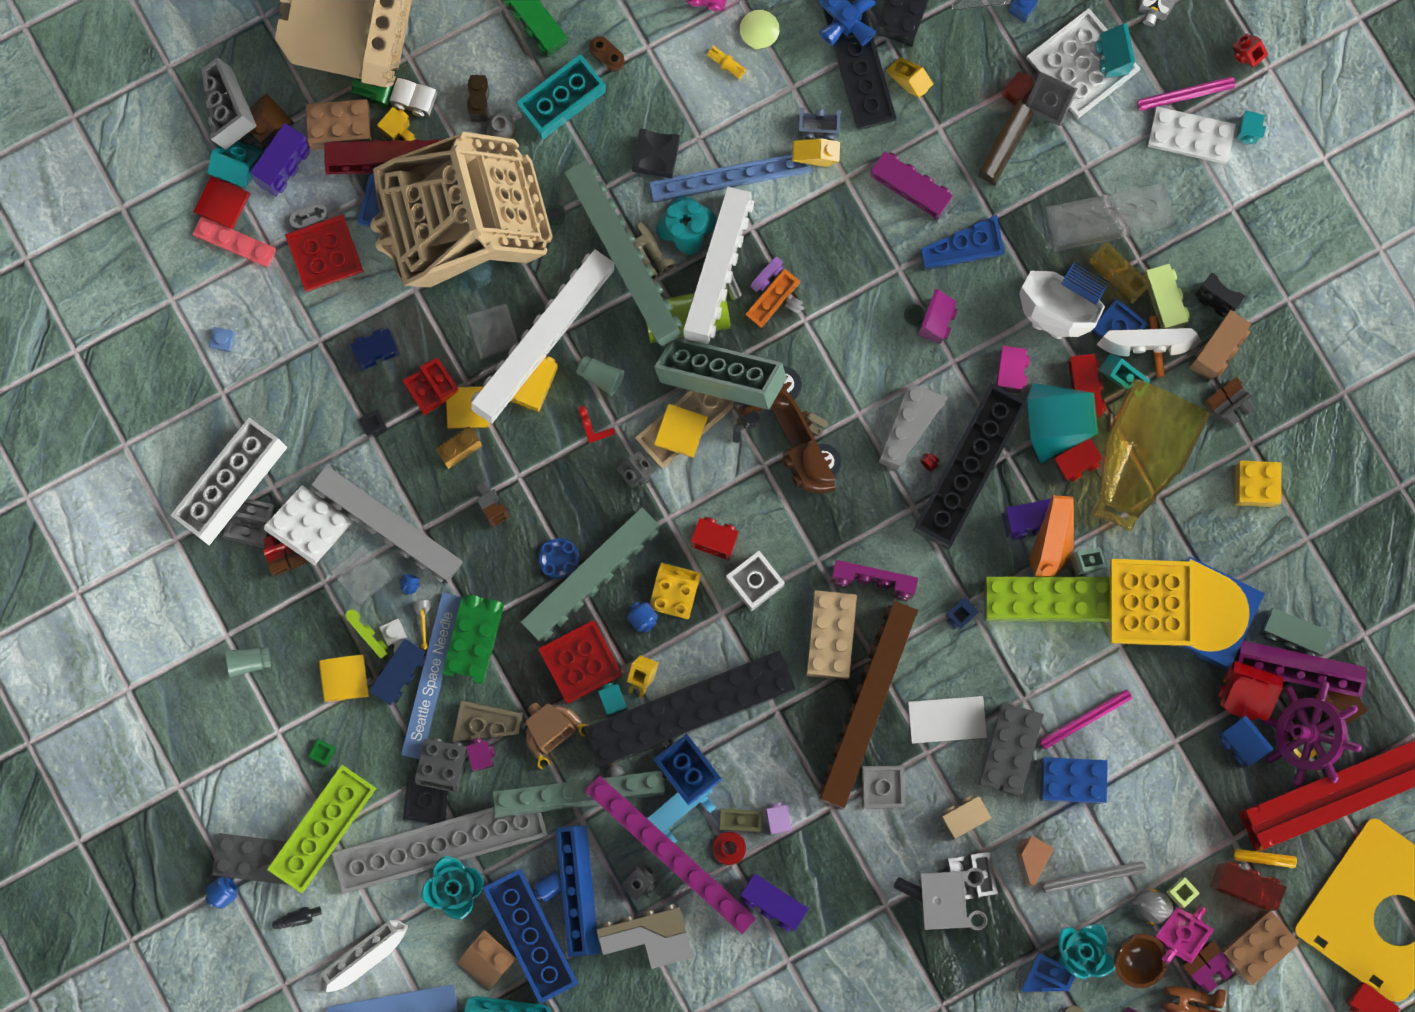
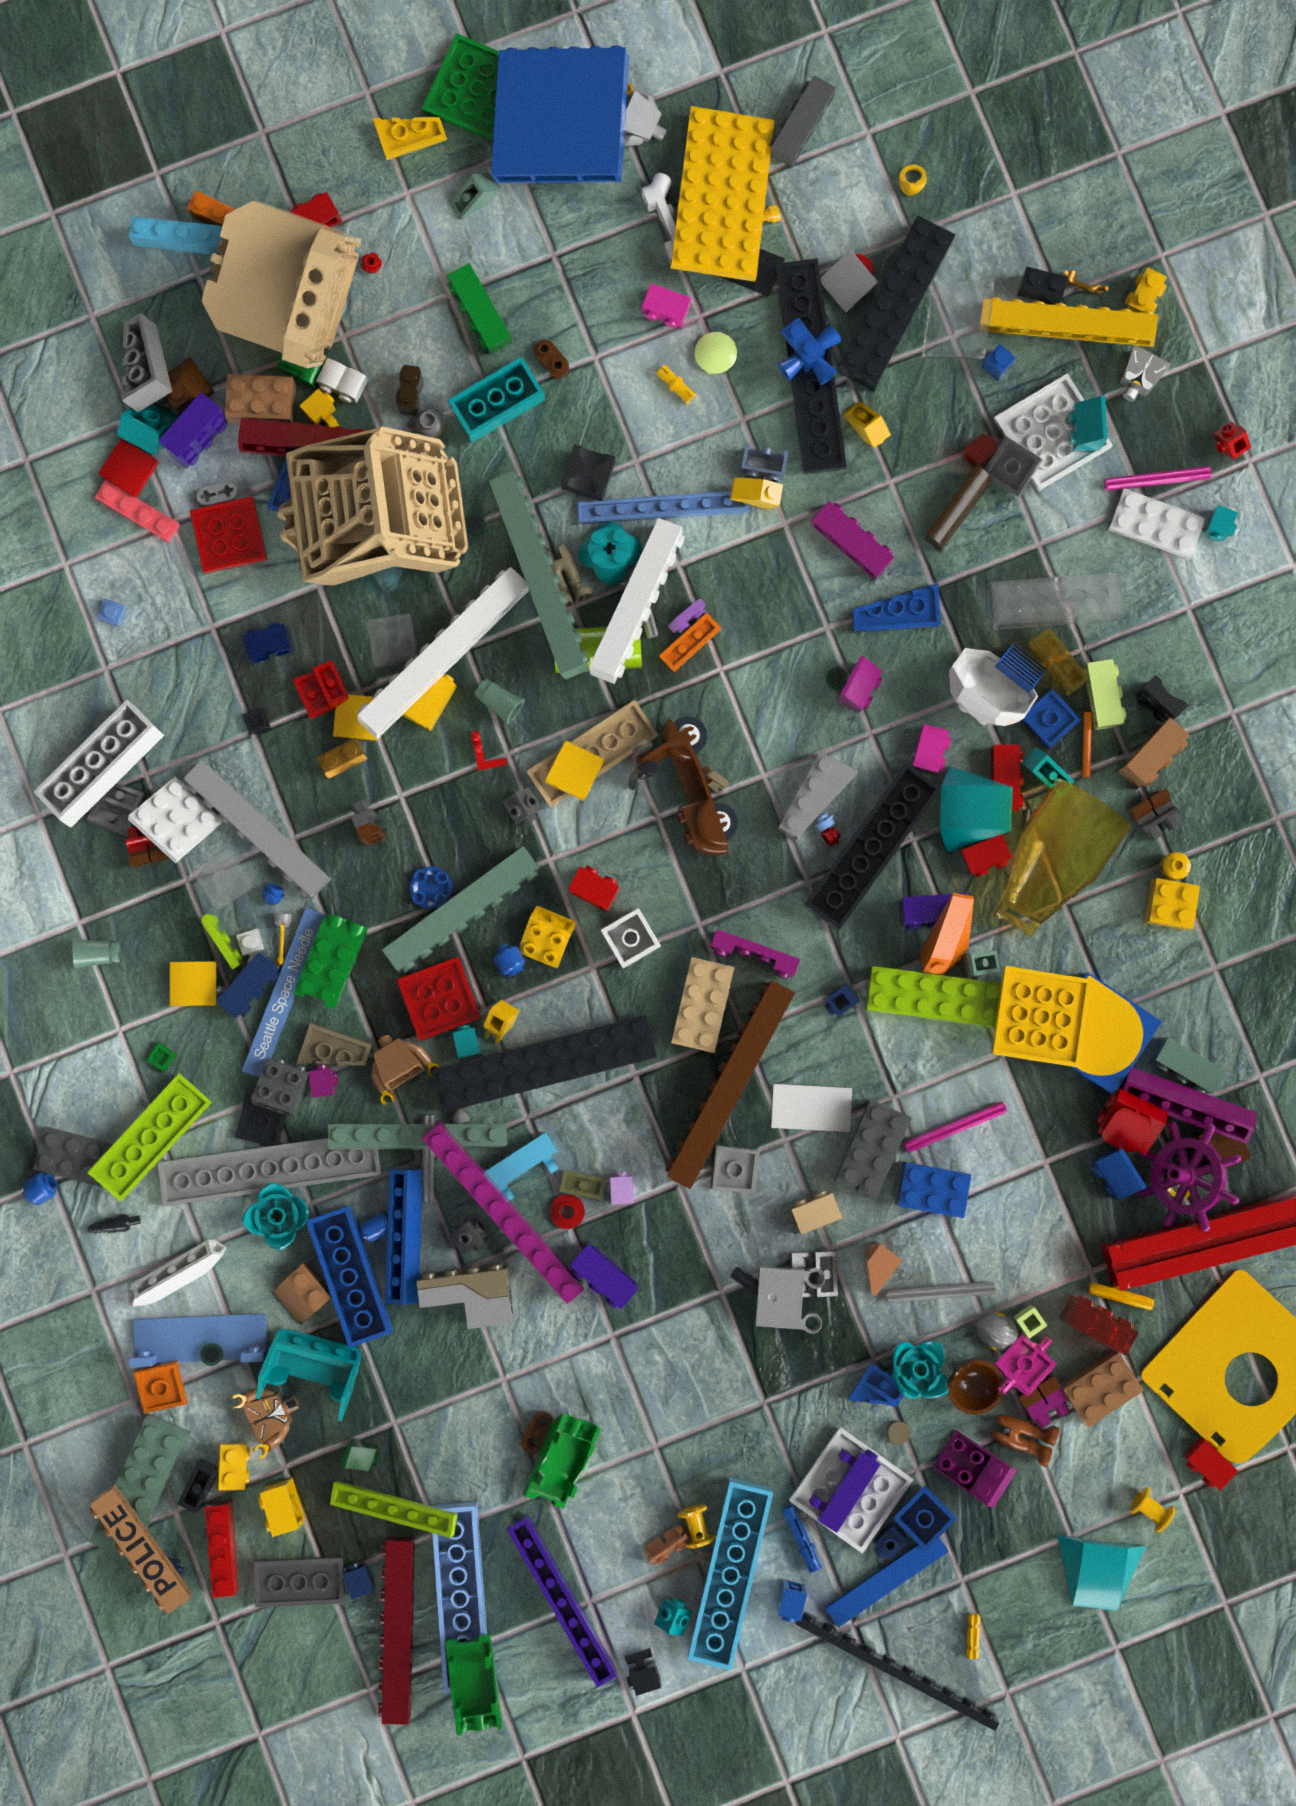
camera: 15 degrees right, 5 degrees up
(591, 823) = (428, 1167): none -> light grey axle
(687, 769) = (533, 1126): blue slope -> none
(721, 372) = (623, 716): sand green brick -> none
(794, 304) = (712, 652): light grey plate -> none
(922, 449) = (824, 822): none -> light blue plate
(1175, 340) = (1106, 741): white brick -> none
(1255, 448) = (1174, 866): none -> yellow head

